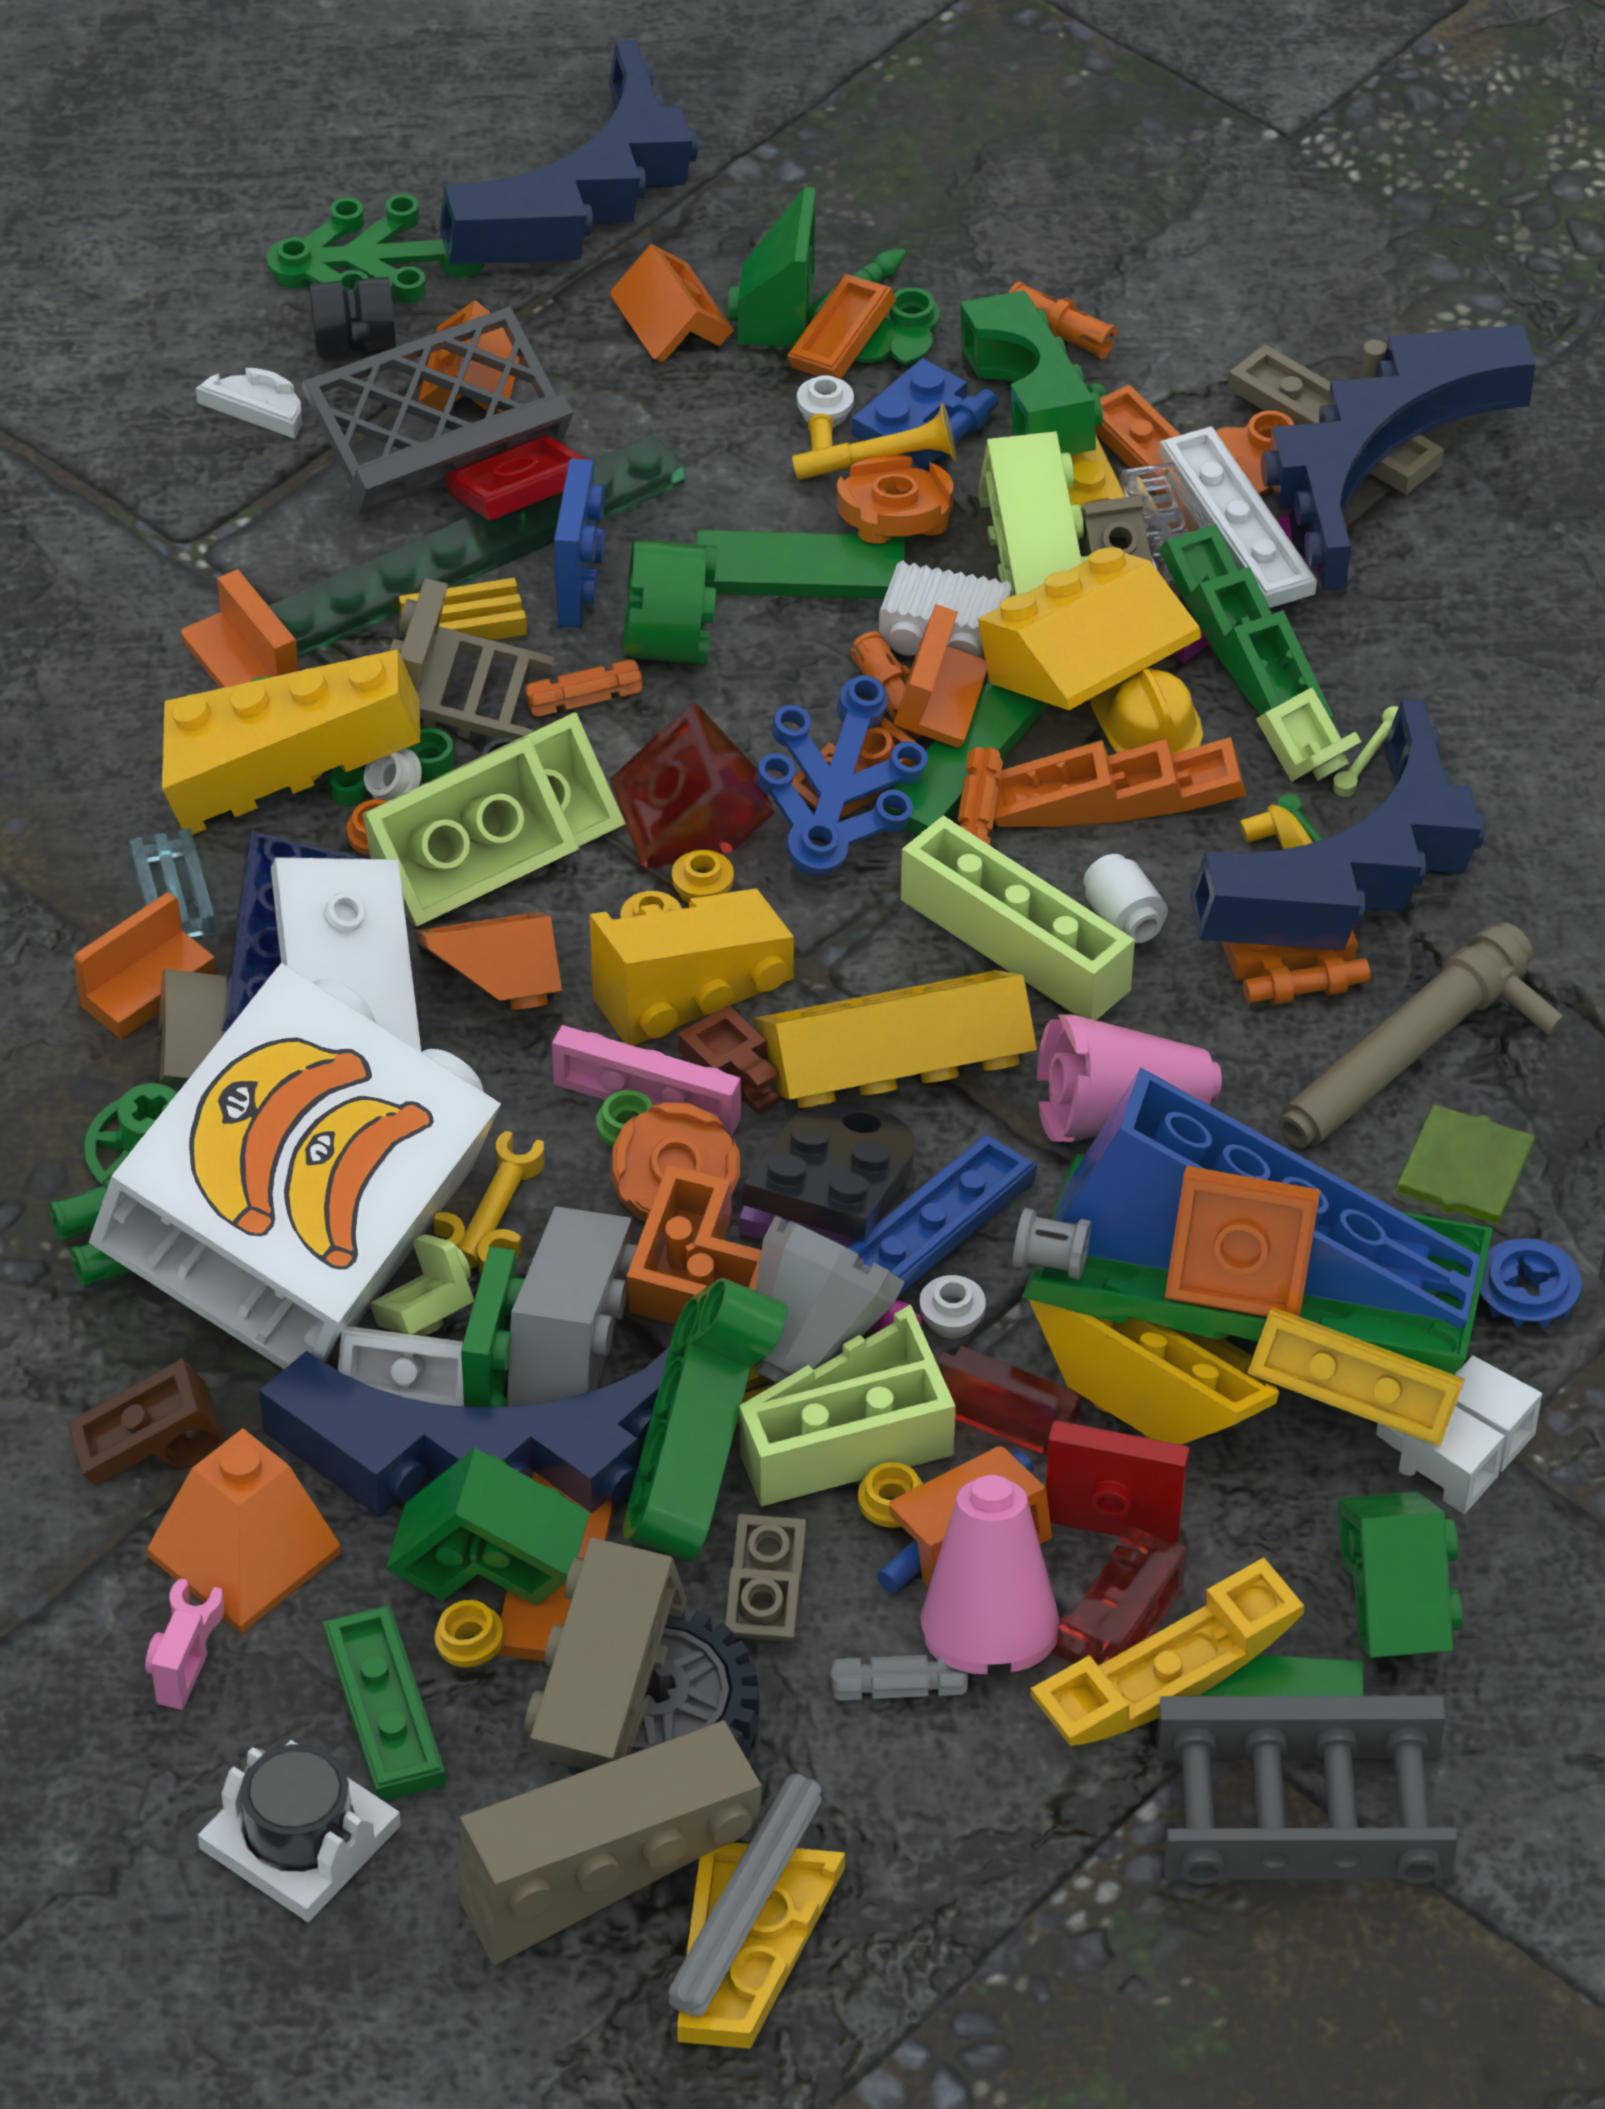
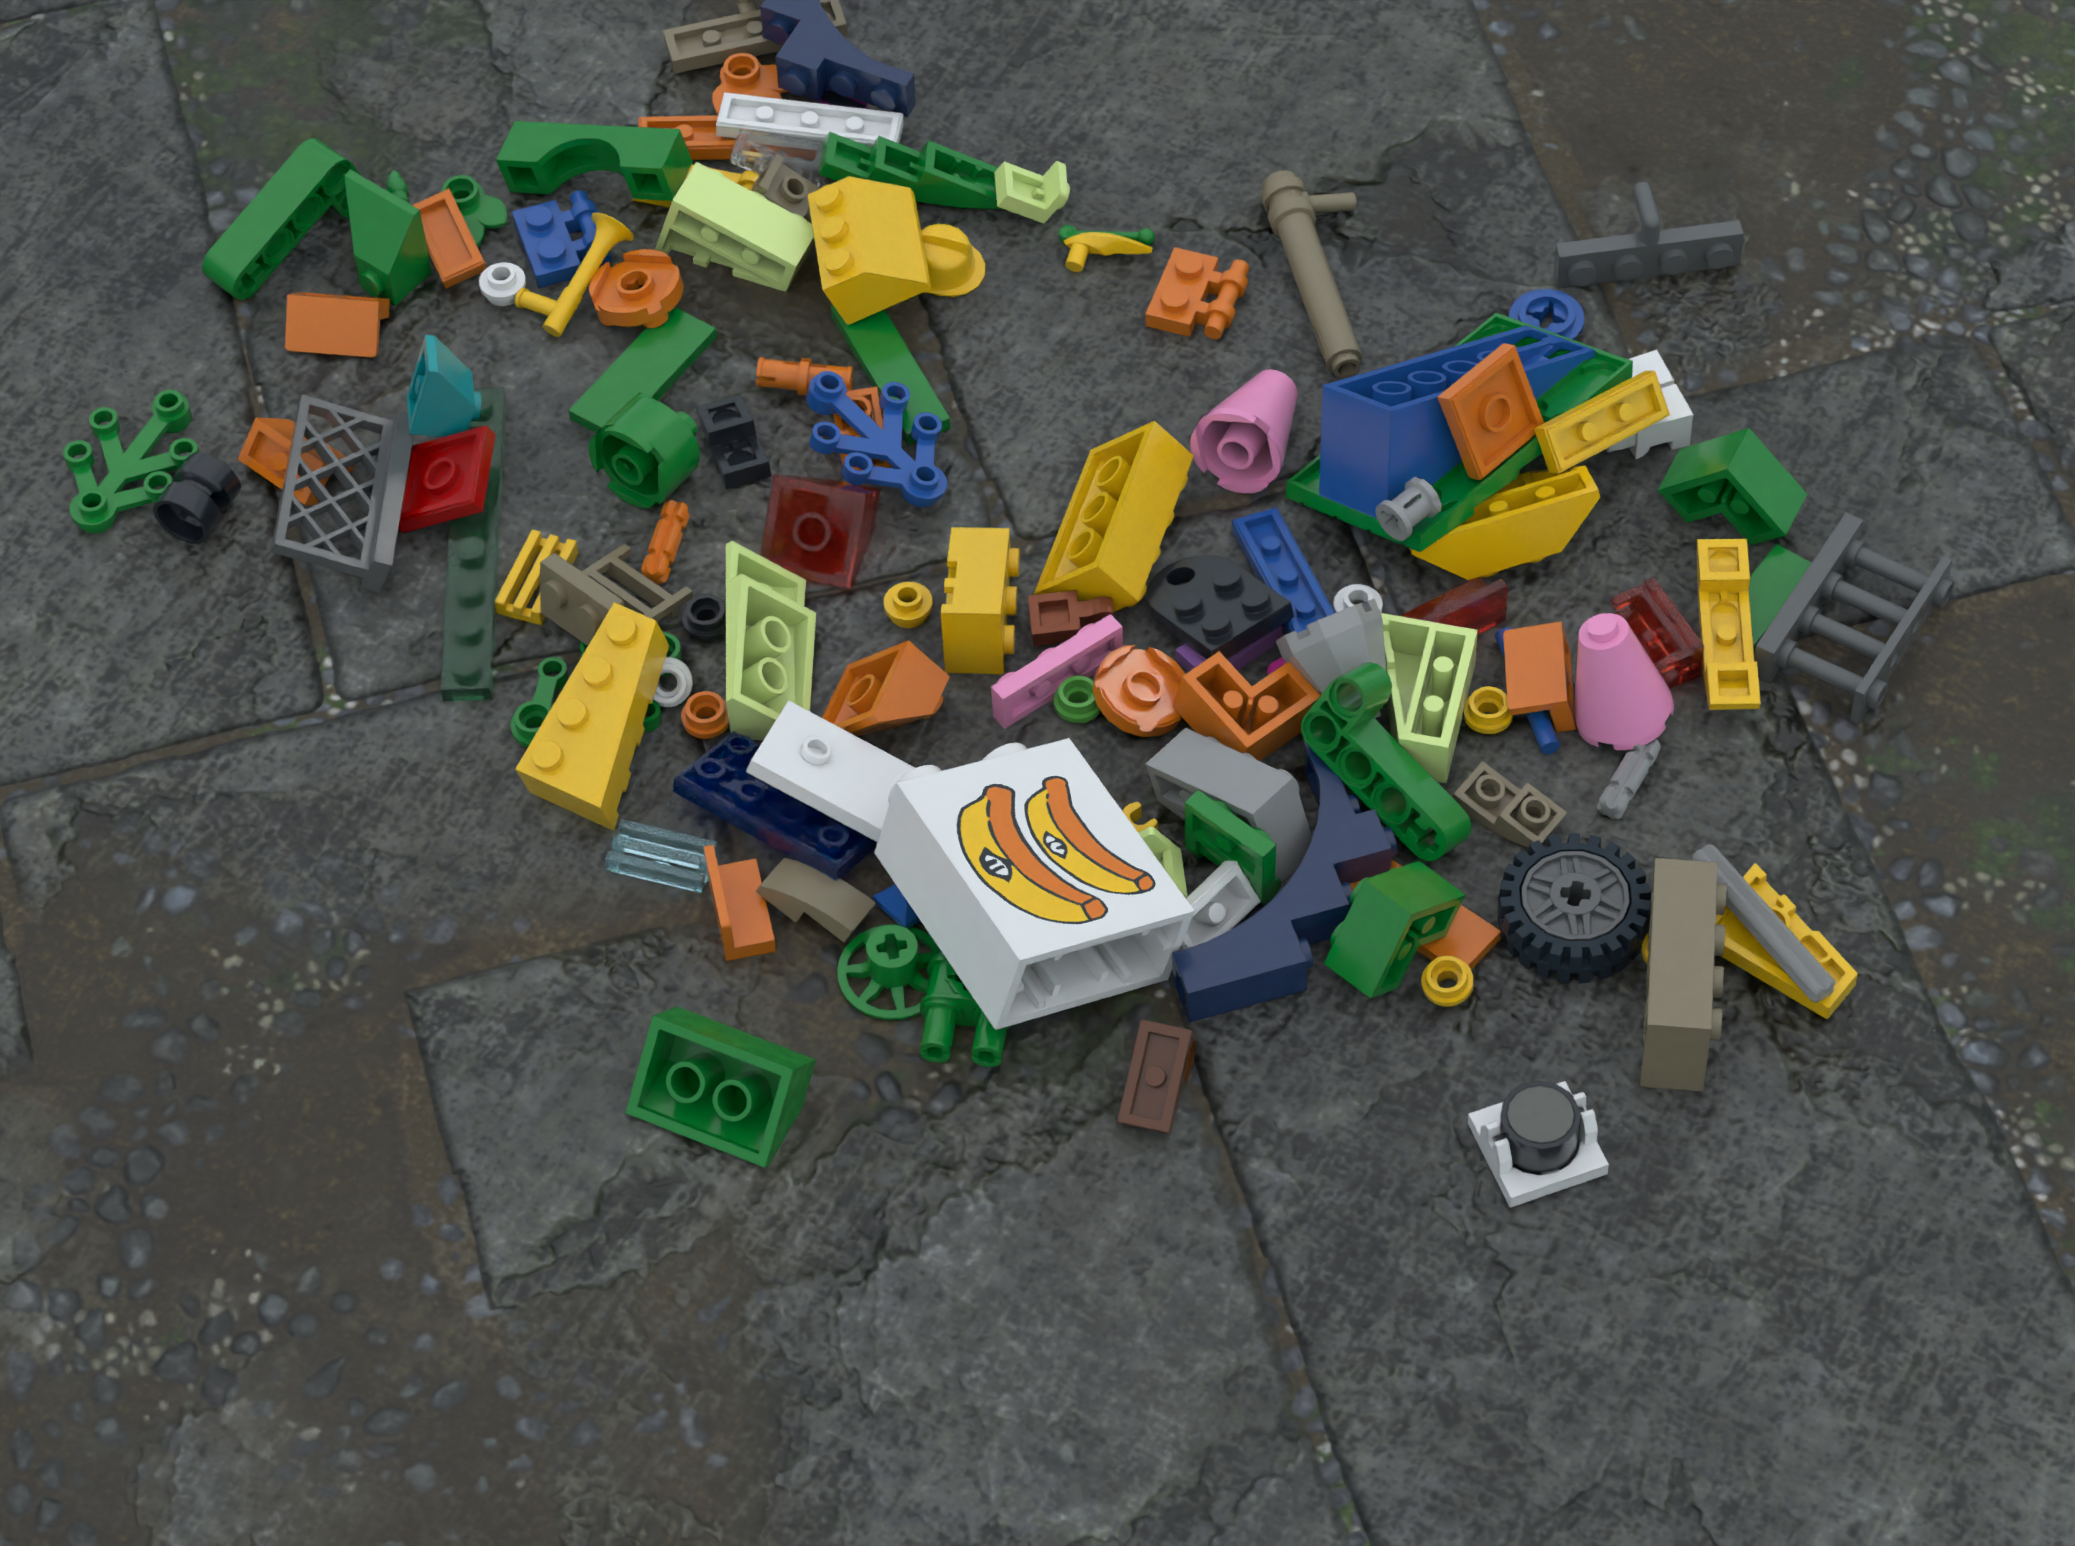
camera: 55 degrees left, 5 degrees up
(180, 1652) = (1358, 1139): bright pink plate -> none
(242, 638) = (463, 710): orange panel -> none
(243, 1529) = (1280, 1066): orange slope -> none
(257, 398) = (216, 595): white tile -> none
(384, 1703) = (1463, 1053): green tile -> none
(554, 207) = (169, 261): dark blue arch -> none
(578, 543) = (549, 472): blue plate -> none
(594, 399) = (441, 393): none -> teal slope
(604, 1654) = (1562, 895): dark tan wedge -> none
(702, 874) = (892, 569): yellow plate -> none
(757, 190) = (278, 218): none -> green beam
(766, 675) = (733, 441): none -> black slope
(914, 595) = (768, 317): white brick -> none
(941, 684) = (836, 345): orange panel -> none
(980, 792) = (951, 383): orange axle -> none
(1017, 919) = (1077, 409): yellowish green brick -> none
(1072, 324) = (562, 112): orange pin -> none
(1115, 1481) = (1584, 581): red plate -> none
(1125, 897) = (1093, 351): white brick -> none
(1135, 784) = (987, 307): orange slope -> none
(1322, 888) = (1158, 183): dark blue arch -> none
(1346, 782) = (1037, 144): yellowish green hinge -> none
(1465, 1164) = (1426, 302): clear neon green piece -> none

